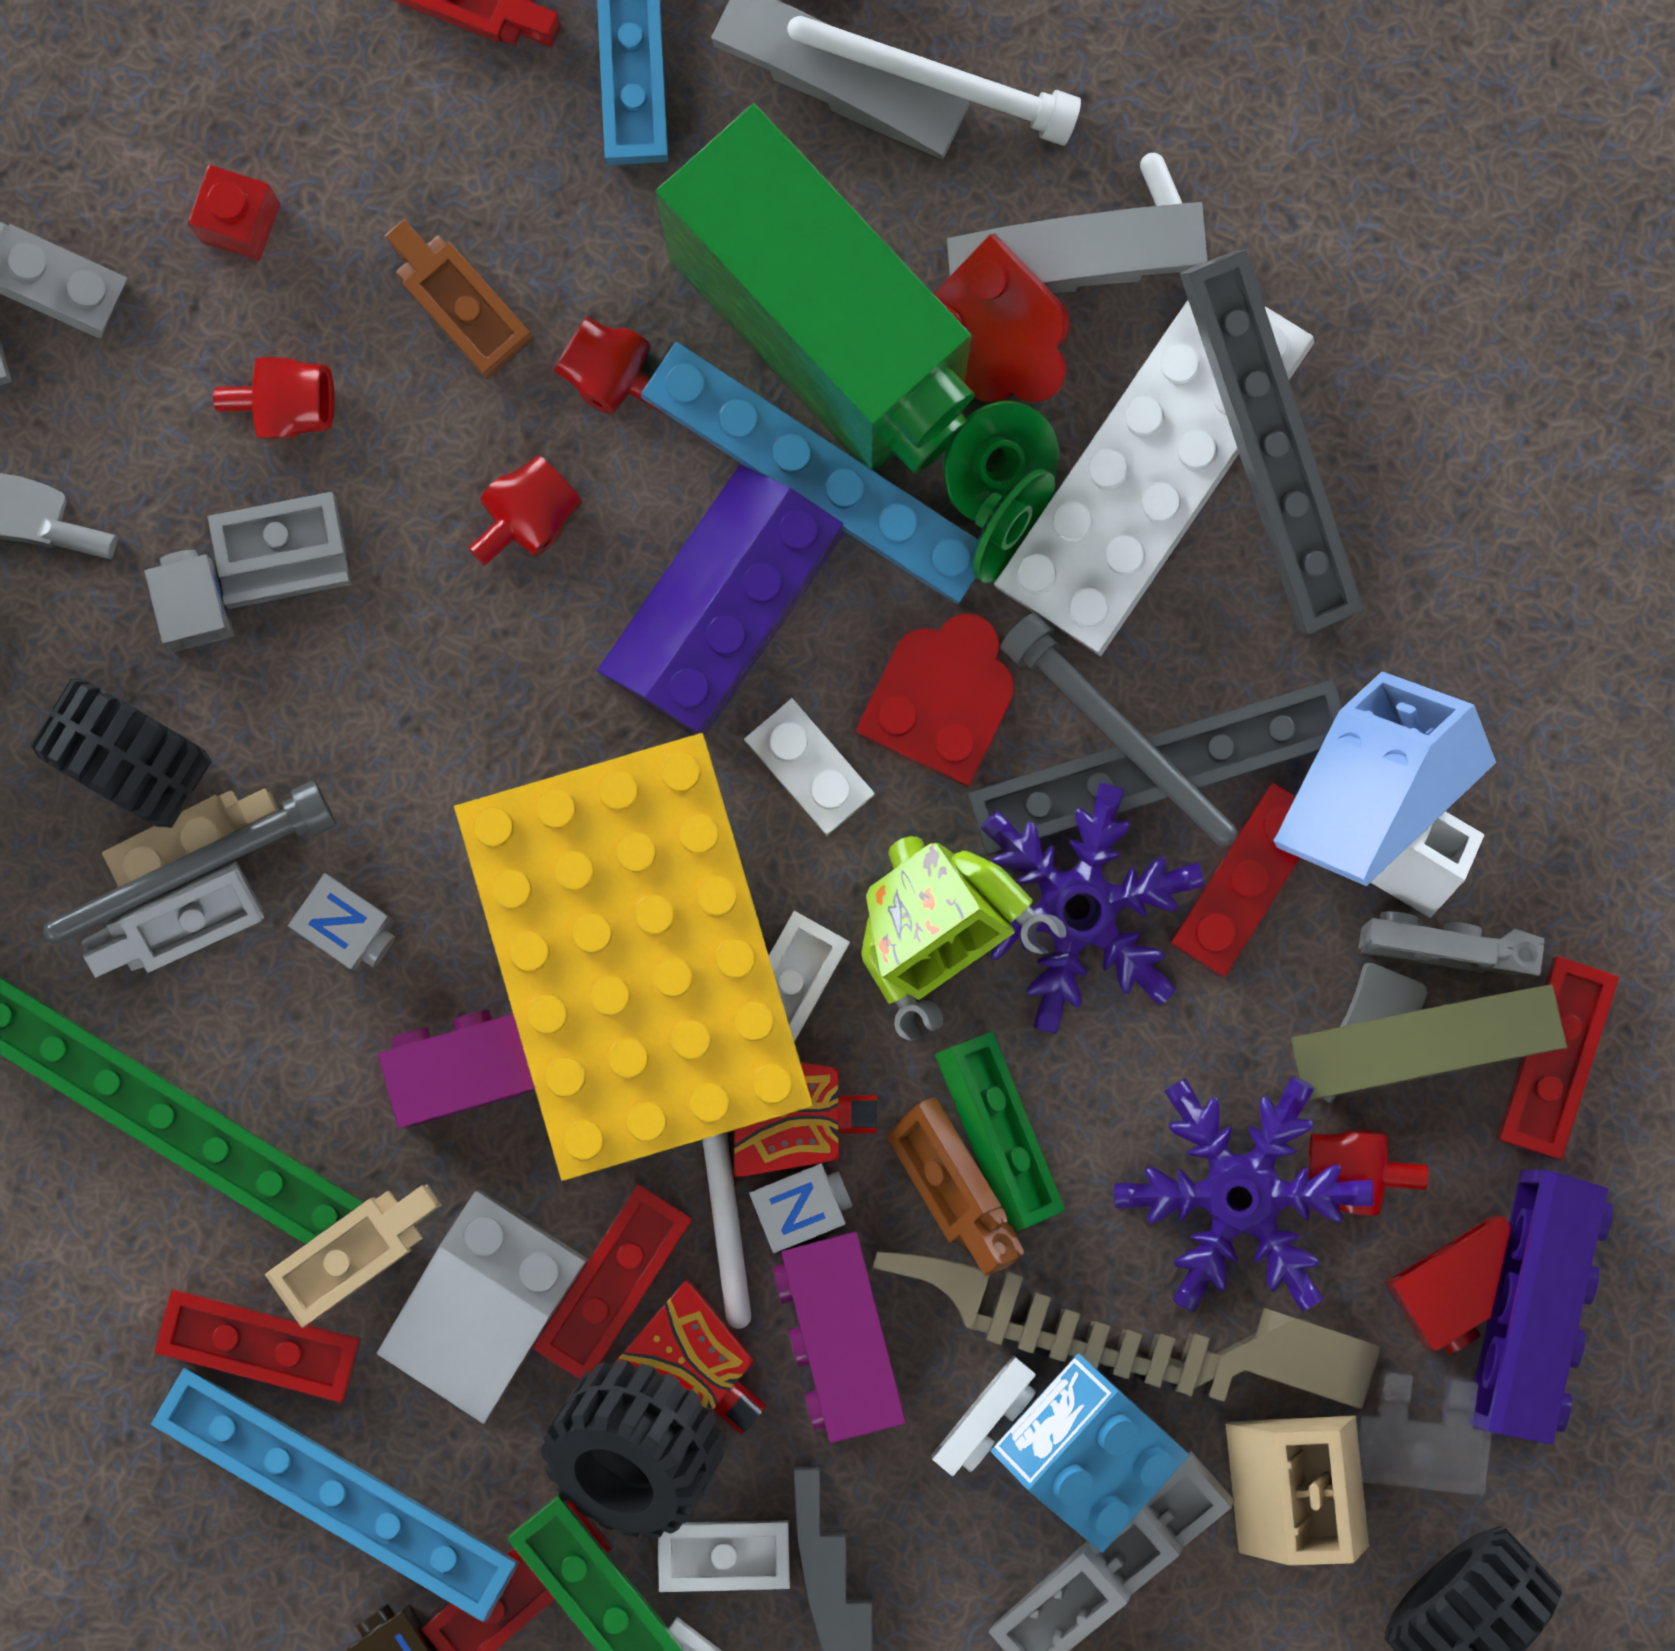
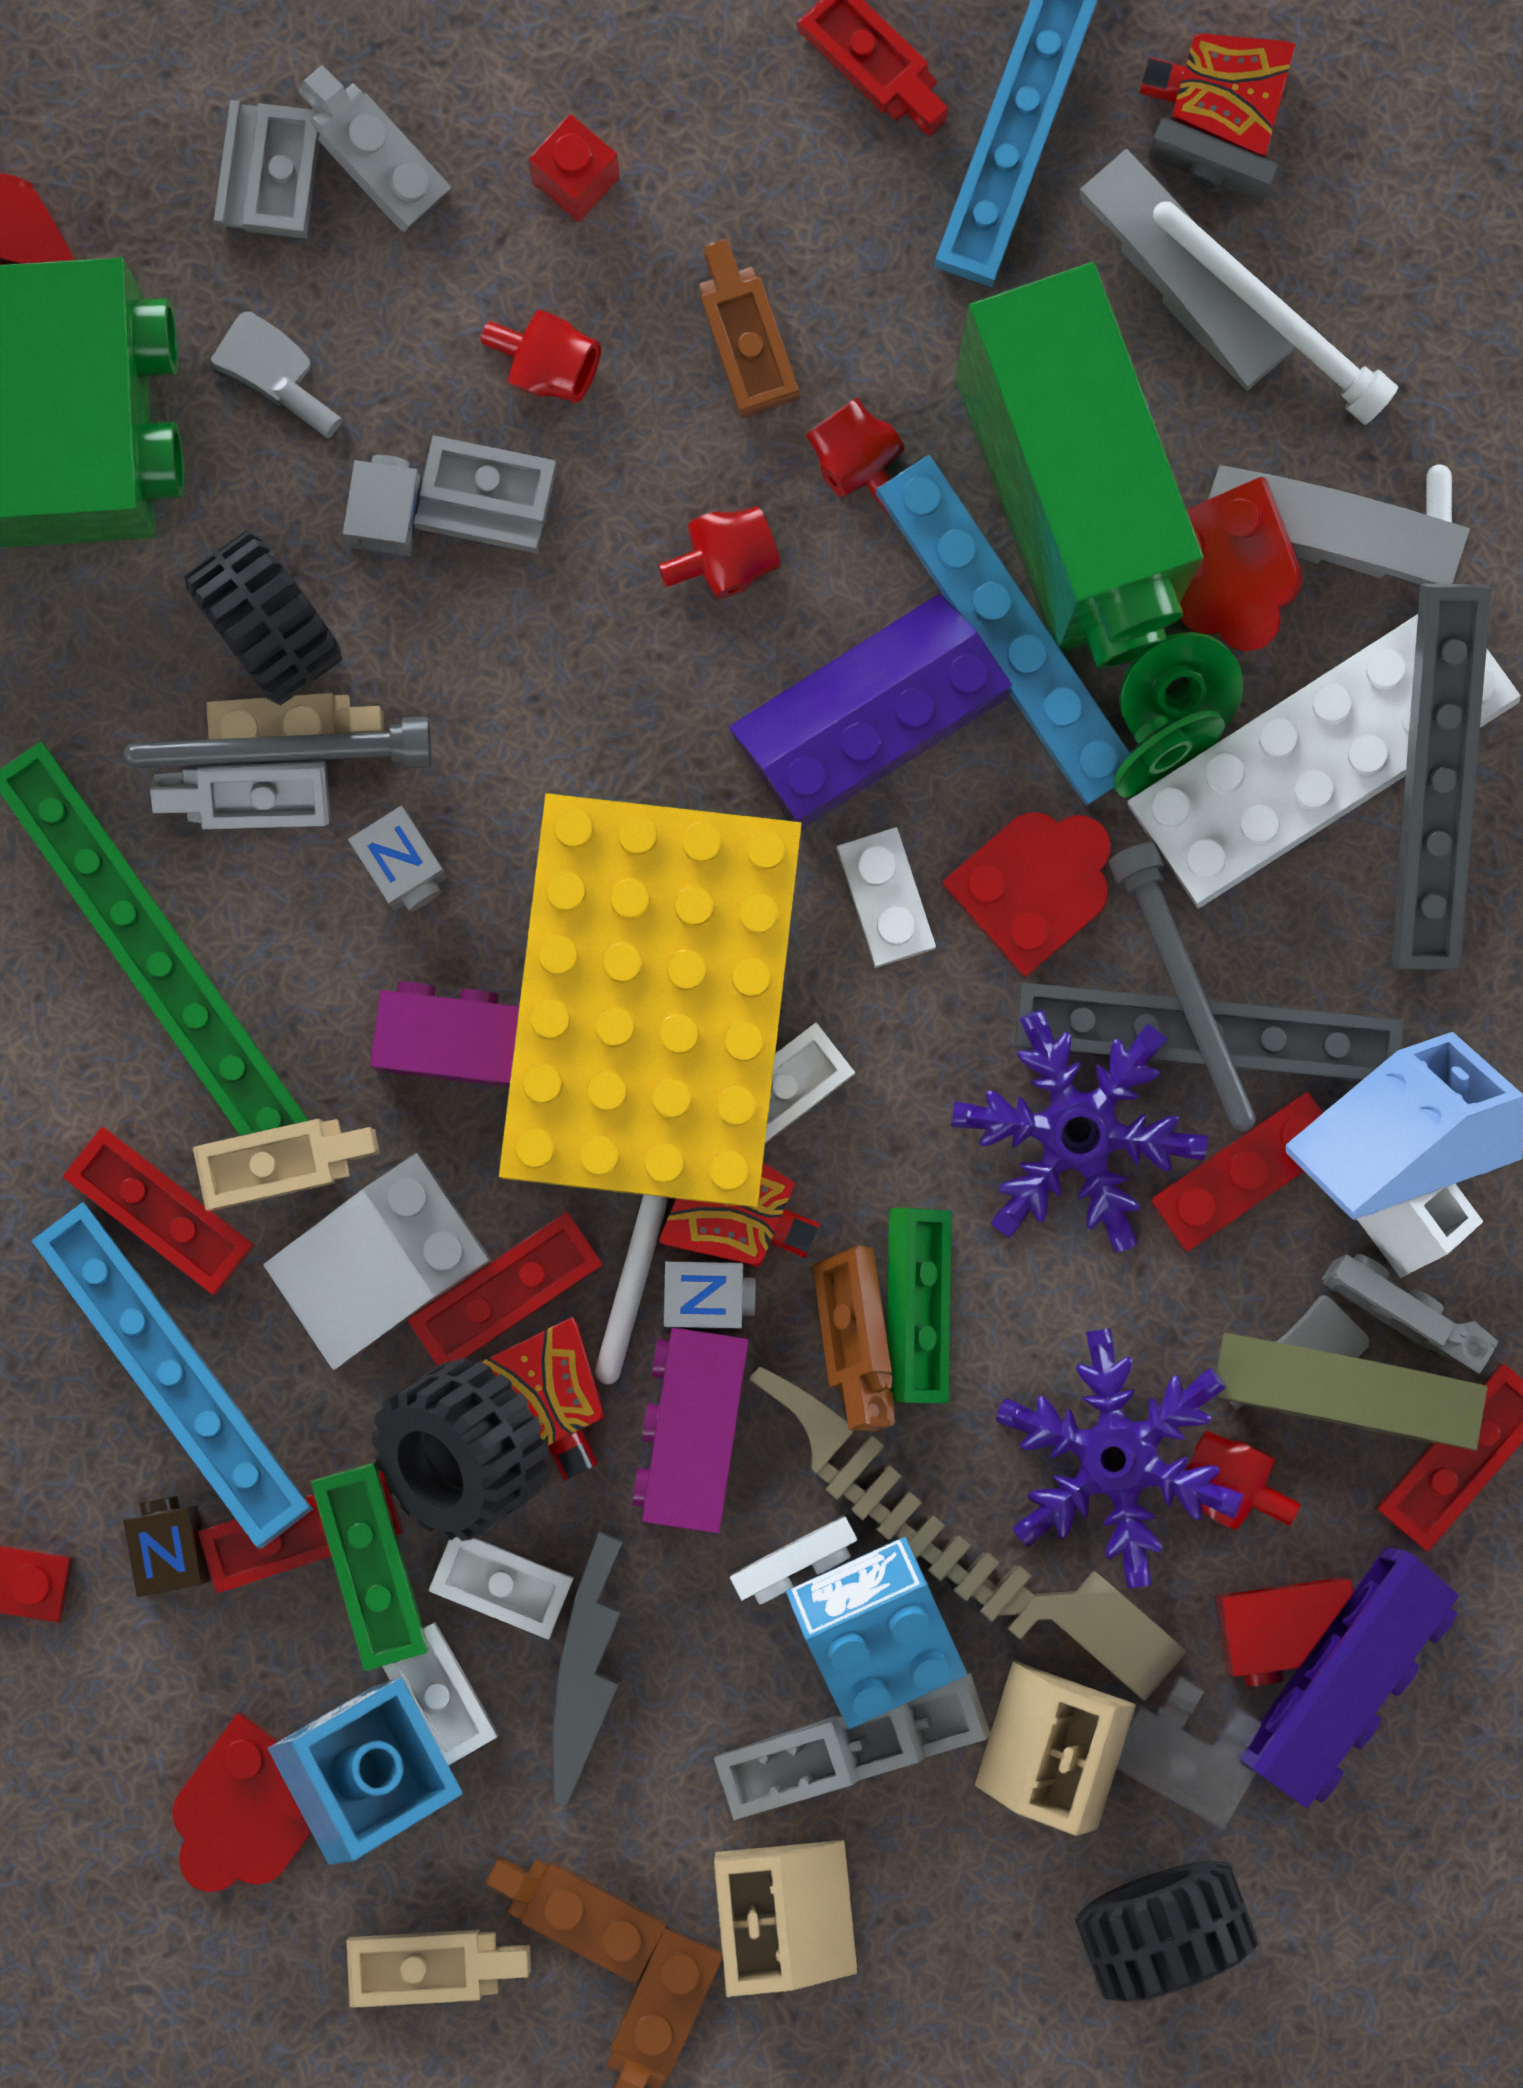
camera: 20 degrees right, 0 degrees up
(937, 919) = (942, 1086): lime torso -> none

